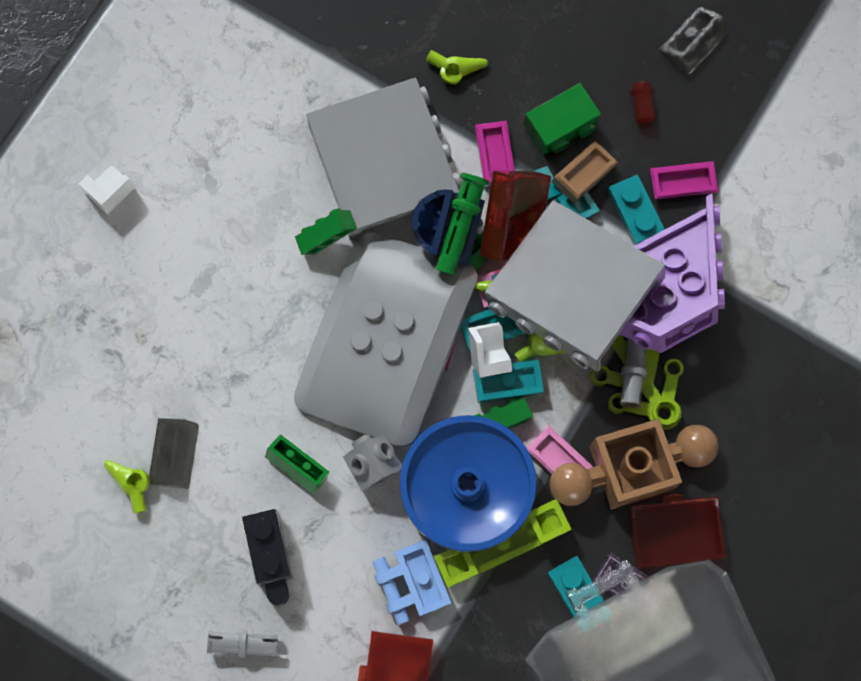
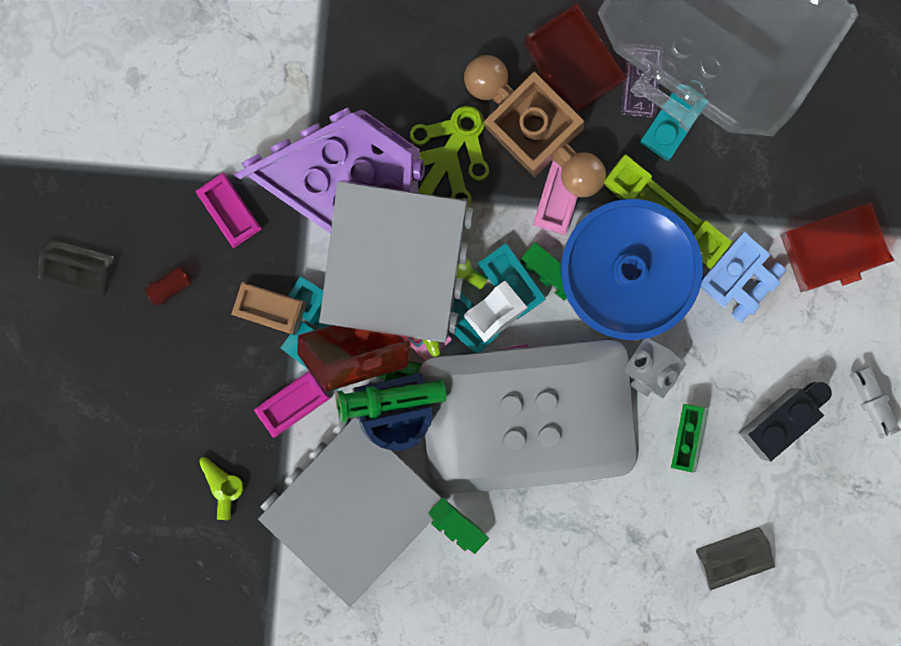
camera: 105 degrees left, 10 degrees up
(132, 482) = (783, 581): lime animal -> none
(562, 120) = (226, 355): green brick -> none
(633, 375) = (450, 166): light grey pin -> none
(635, 209) = (281, 242): teal plate -> none

